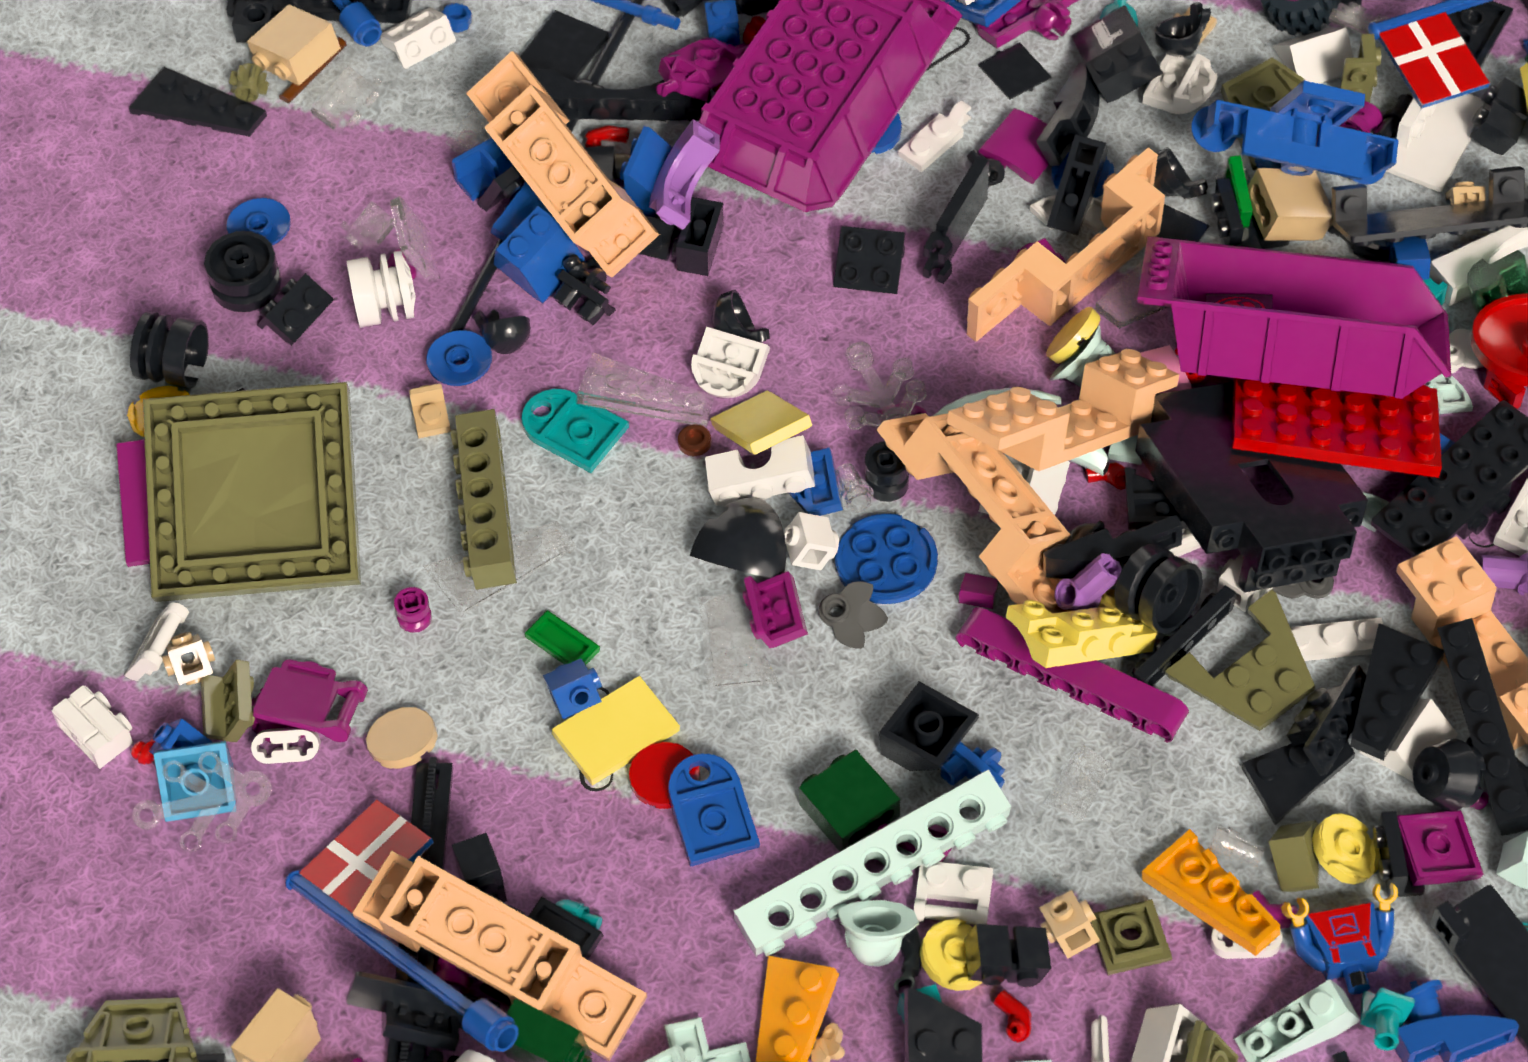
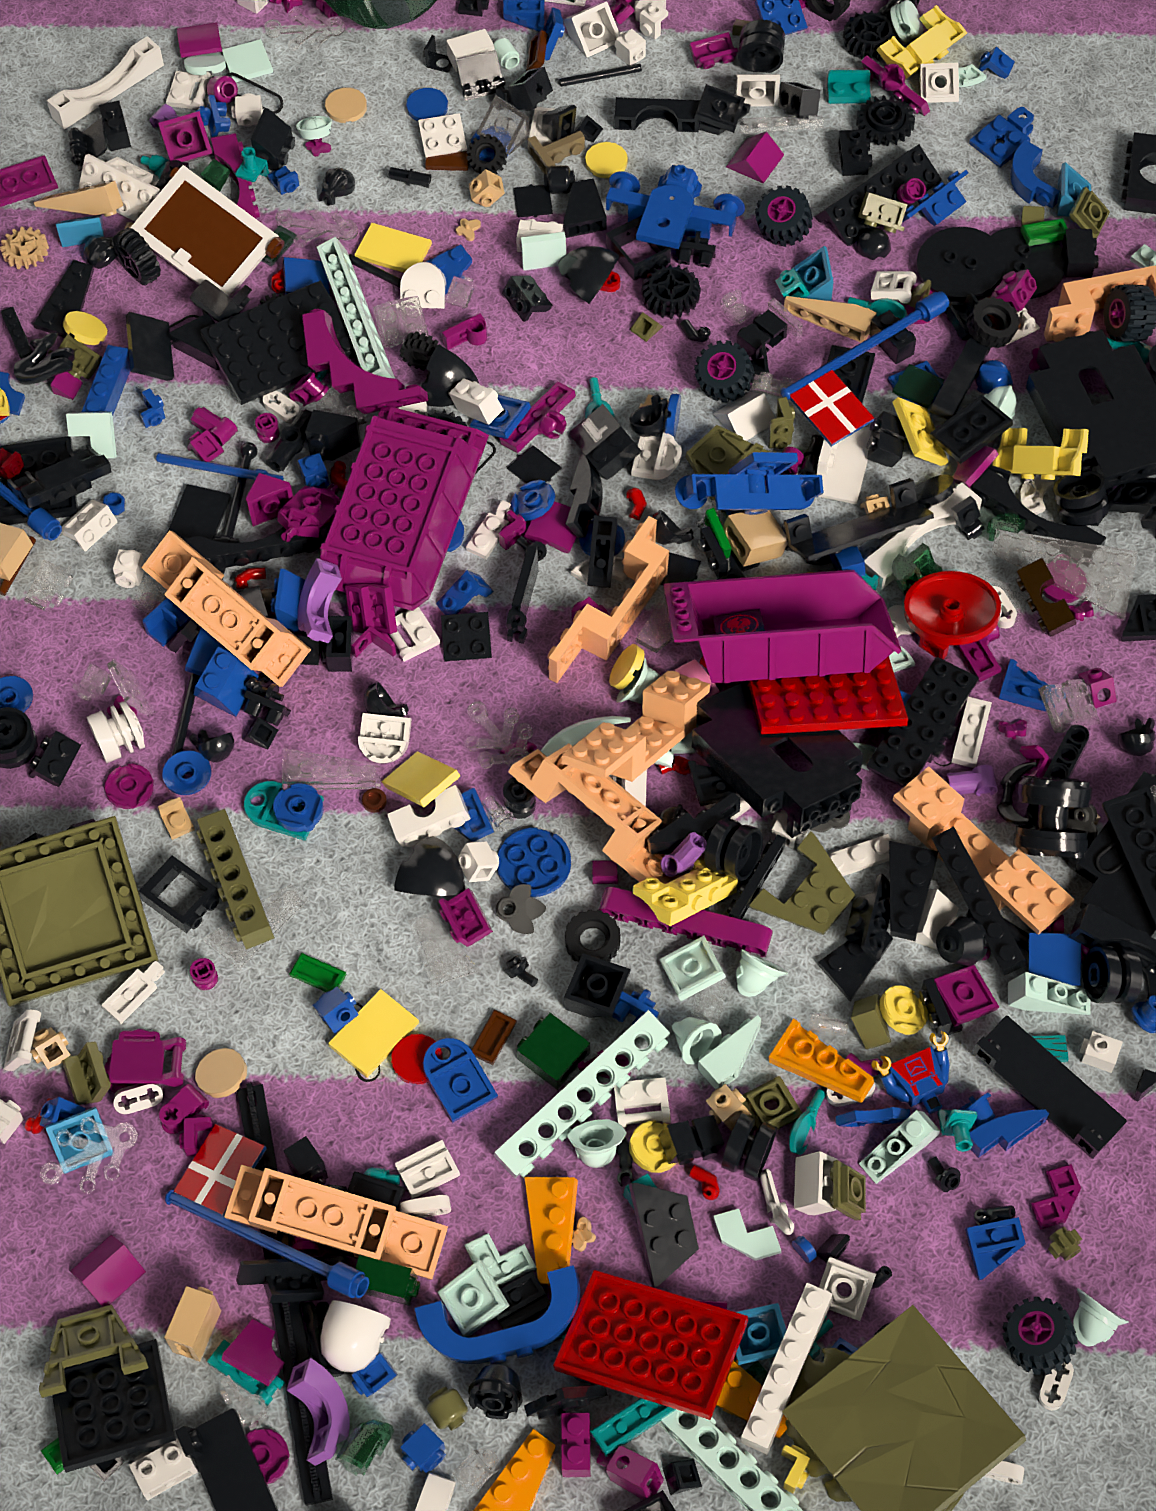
camera: 15 degrees left, 5 degrees up
(188, 955) = (108, 1271): none -> magenta slope
(316, 614) = (133, 992): none -> white plate
(339, 771) = (182, 1105): none -> magenta piece
(345, 796) = (189, 1139): none -> magenta bracket
(379, 370) = (135, 790): none -> magenta tile
(395, 480) = (163, 878): none -> black window
(450, 96) = (128, 568): none -> white brick
(569, 330) = (261, 733): none -> black slope
(596, 443) = (305, 819): none -> blue plate
(628, 963) = (426, 1206): none -> white beam
(640, 917) = (427, 1169): none -> white plate
(649, 40) = (267, 498): none -> magenta slope
(747, 237) = (380, 639): none -> magenta bracket
(751, 199) = (372, 607): none -> magenta slope
(774, 768) = (493, 1037): none -> reddish brown tile
(807, 240) = (419, 632): none -> white plate
(828, 686) = (516, 967): none -> black plate
(880, 201) = (462, 592): none -> blue bracket
(941, 645) = (587, 920): none -> black tyre
(961, 143) = (510, 533): none -> magenta bracket
(1002, 109) = (533, 500): none -> blue tile
(1049, 826) = (695, 1037): none -> light aqua piece
(1065, 734) = (692, 968): none -> light aqua tile
(1084, 979) = (745, 1145): none -> black wheel
(1090, 857) = (727, 1059): none -> light aqua slope
(1144, 135) = (638, 499): none -> red arm
(1150, 760) = (756, 974): none -> light aqua piece
(1169, 968) = (804, 1122): none -> teal piece
(1215, 39) = (673, 414): none -> blue tile
(1249, 977) = (883, 1116): none -> blue tile

